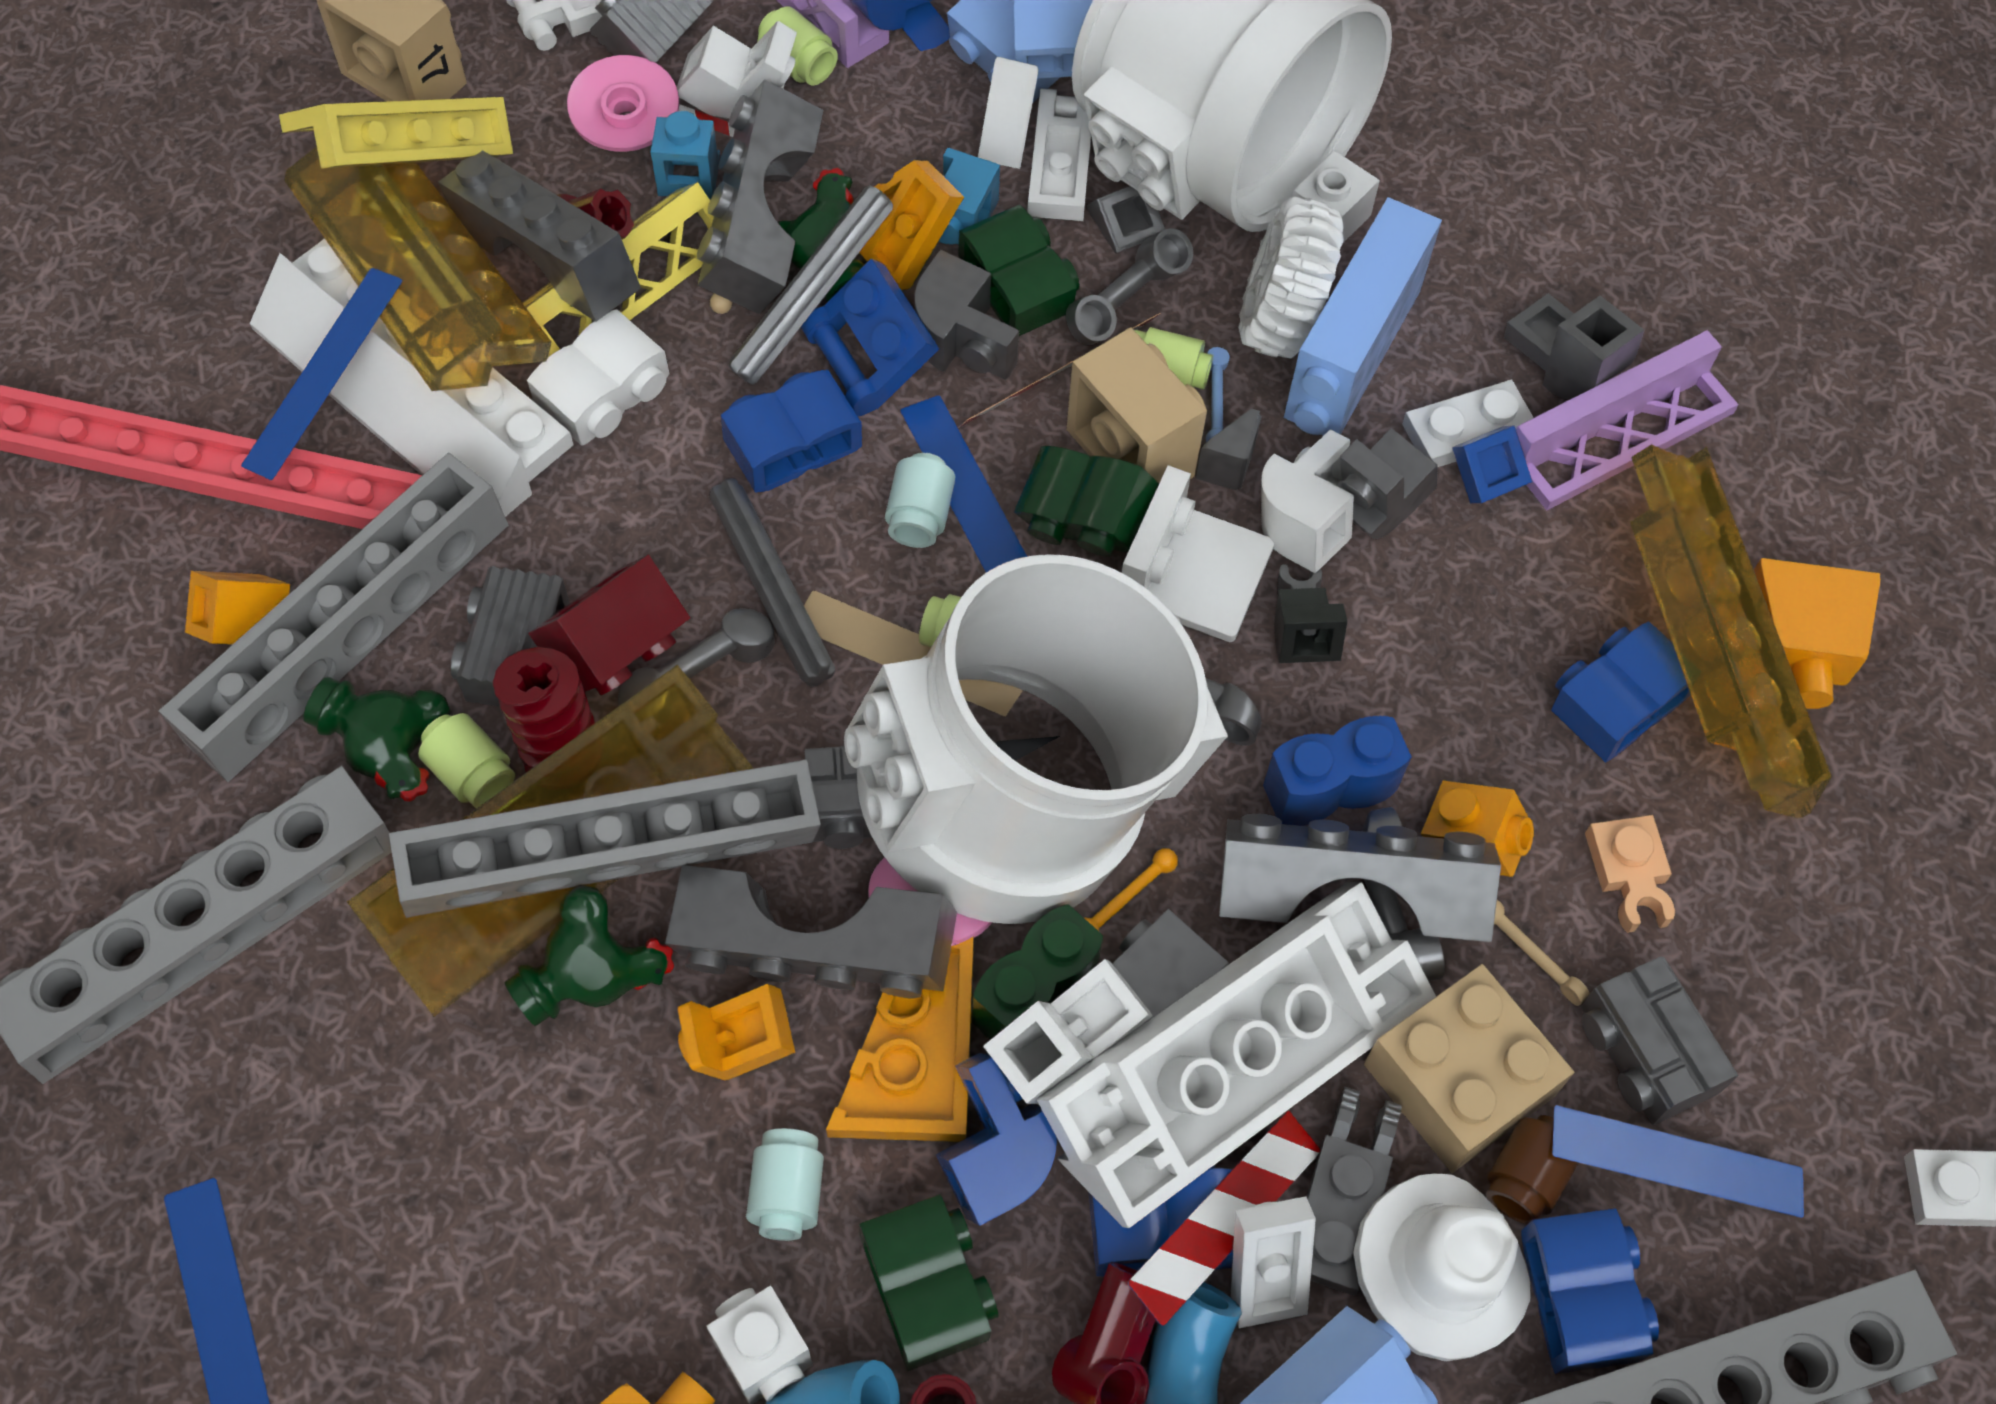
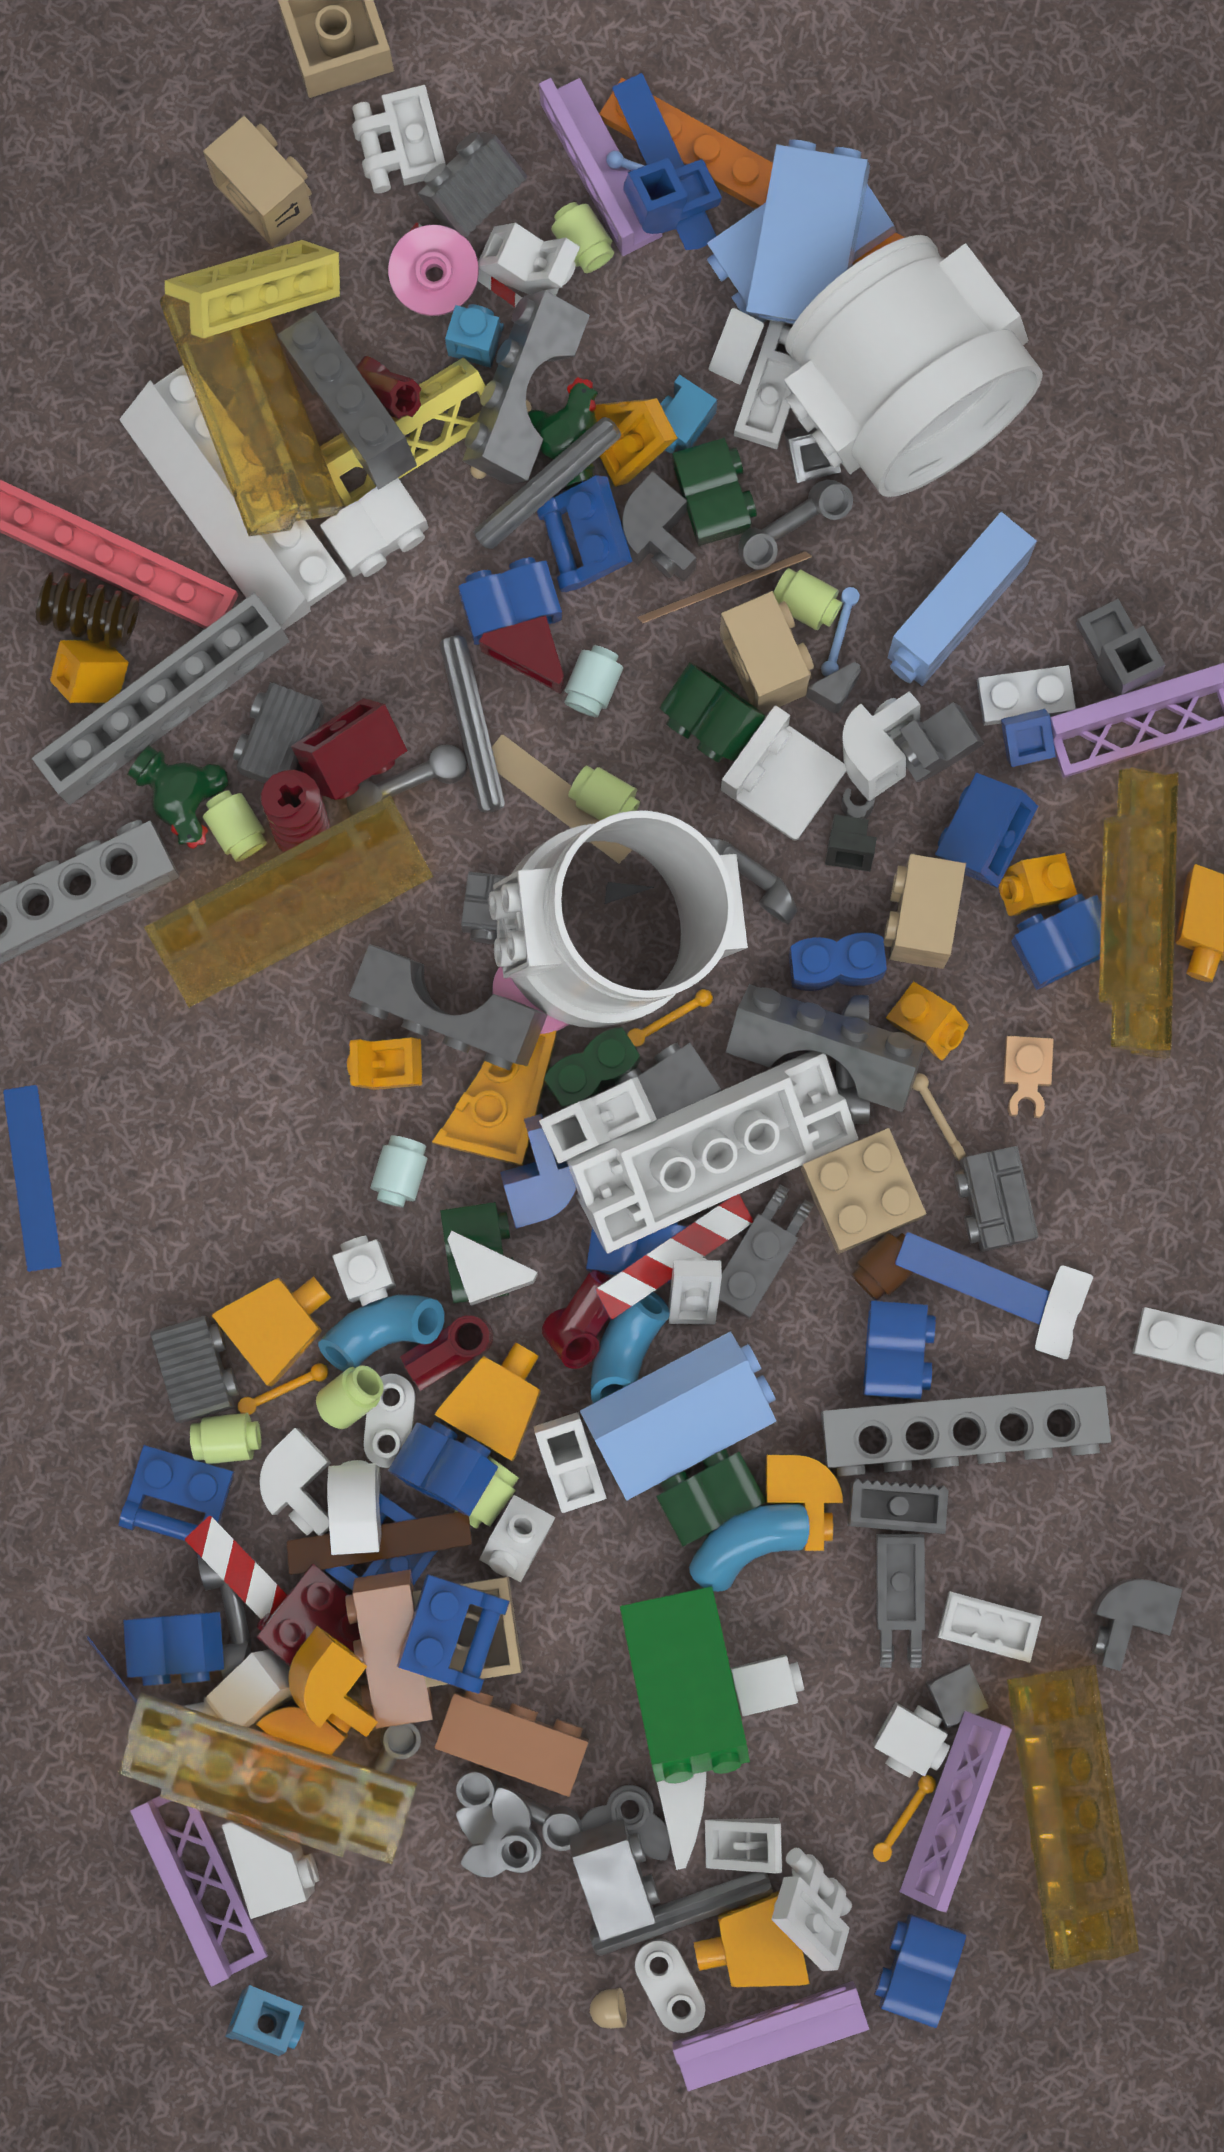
camera: 20 degrees right, 20 degrees up
(223, 536) = (86, 612): none -> dark brown piece
(321, 373) = (171, 495): blue sticker -> none
(585, 961) = (294, 994): dark green animal -> none
(603, 838) = (321, 922): light grey brick -> none
(825, 480) = (527, 649): none -> dark red slope
(952, 1293) = (486, 1271): none -> white slope
(971, 496) = (635, 680): blue sticker -> none
(1291, 277) = (912, 557): white gear -> none
(1342, 188) = (974, 478): white brick -> none
(1439, 676) = (926, 912): none -> tan brick
(1442, 1267) = (807, 1315): white hat -> none
(1479, 572) = (987, 828): none -> blue brick
(1558, 629) = (1036, 883): none -> light orange bracket
(1796, 1183) = (1061, 1311): none -> white sticker

